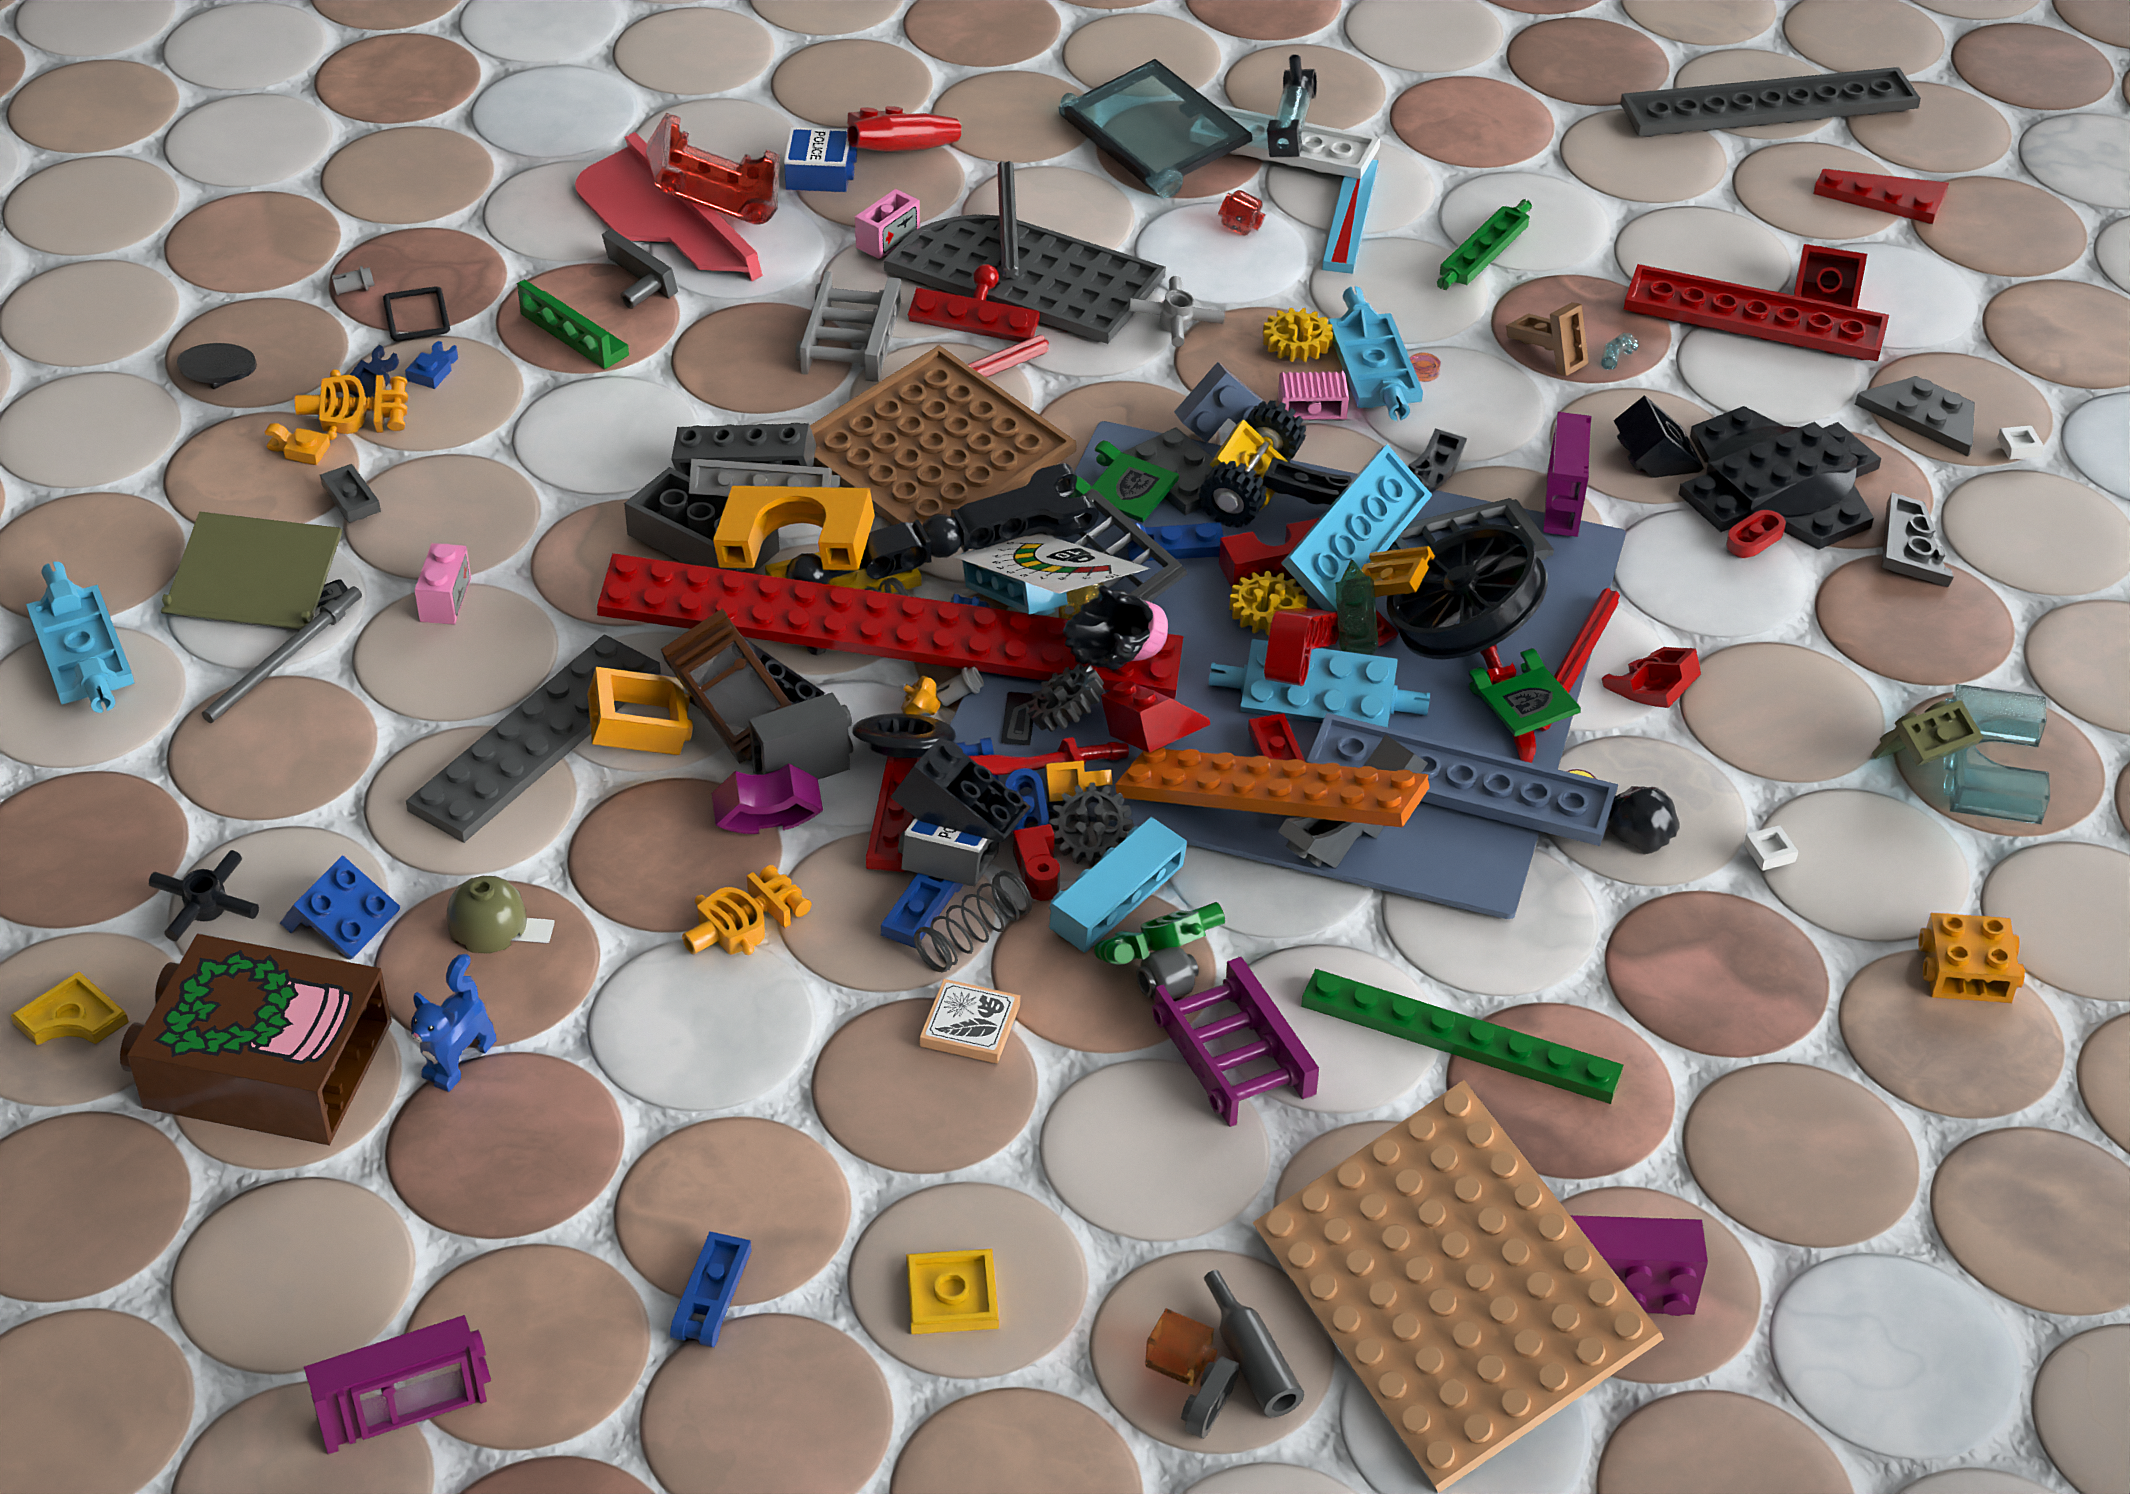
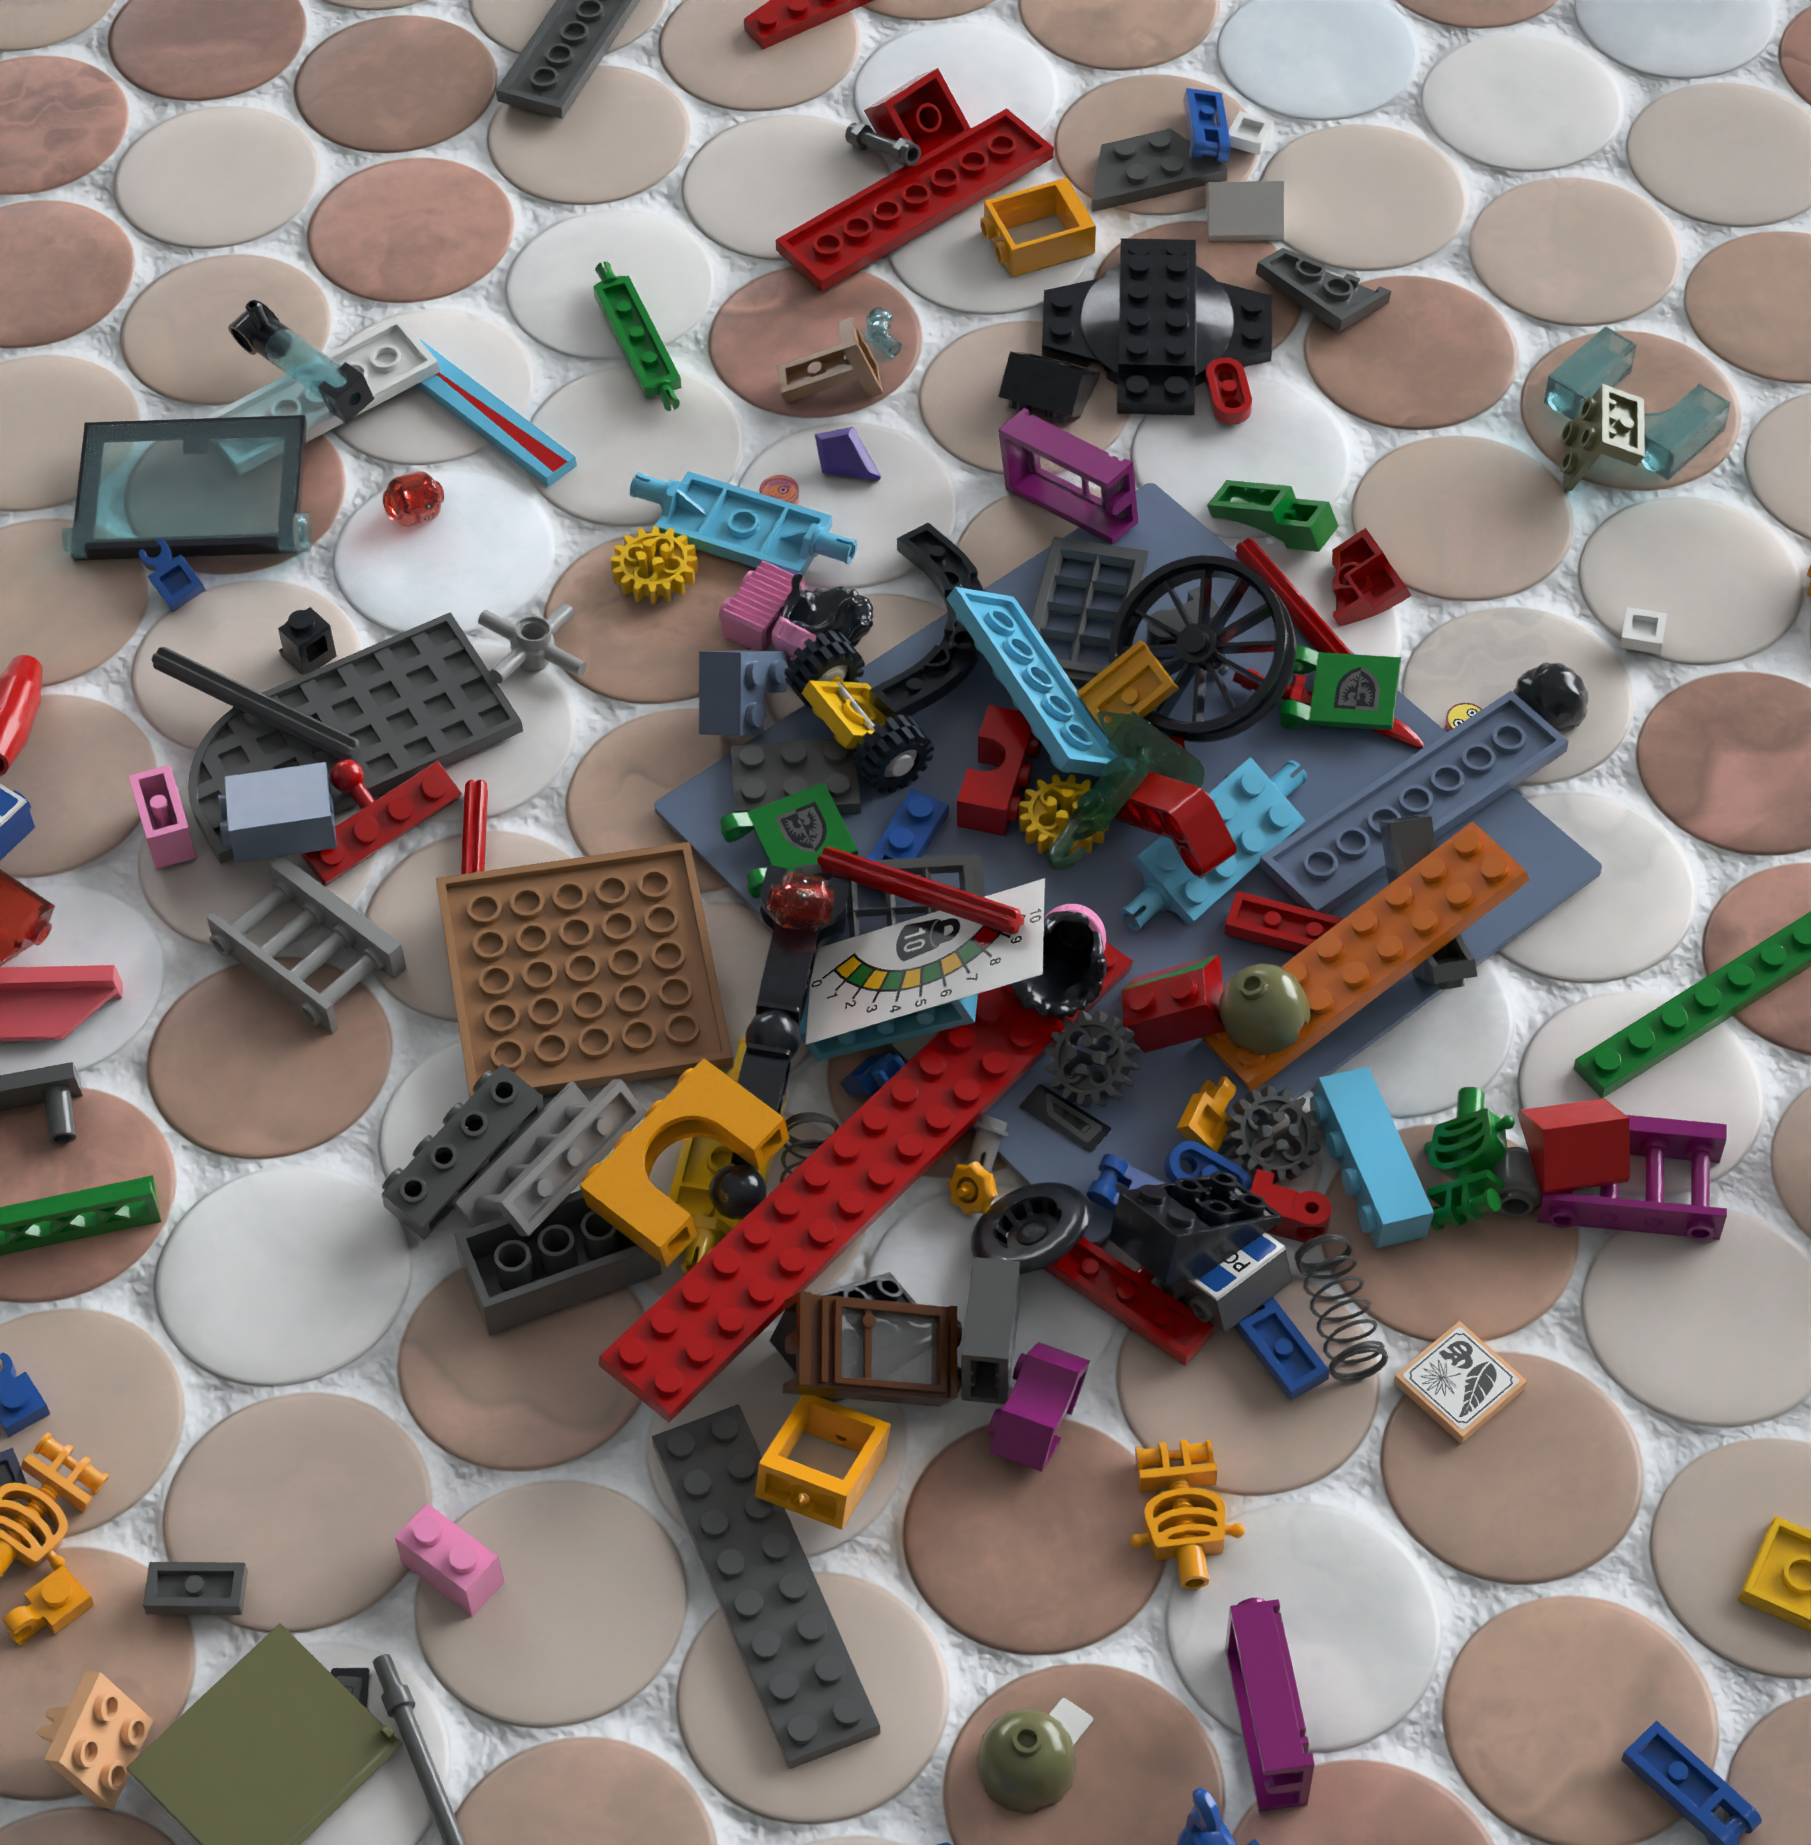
camera: 55 degrees left, 10 degrees up
(208, 486) = (96, 1738): none -> light nougat plate
(603, 1006) = (1268, 1705): none -> magenta door
(926, 259) = (278, 812): none -> brick
(1041, 482) = (801, 901): none -> clear red head
(1066, 752) = (1170, 1102): red sword -> none
(1078, 151) = (172, 578): none -> blue plate
(1081, 214) = (299, 632): none -> black brick
(1100, 530) = (921, 890): none -> red axle
(1172, 748) = (1263, 1008): none -> olive cylinder
(1213, 979) = (1577, 1145): none -> red slope
(1274, 599) = (1100, 804): none -> clear green plate
(1327, 421) = (818, 612): none -> black hair
(1486, 377) = (845, 454): none -> dark purple piece
(1663, 604) = (1276, 511): none -> green slope
(1783, 273) = (902, 151): none -> dark grey bar
(1811, 363) = (1031, 205): none -> light orange window
(1943, 471) = (1245, 210): none -> white slope
(1995, 413) = (1207, 124): none -> blue plate

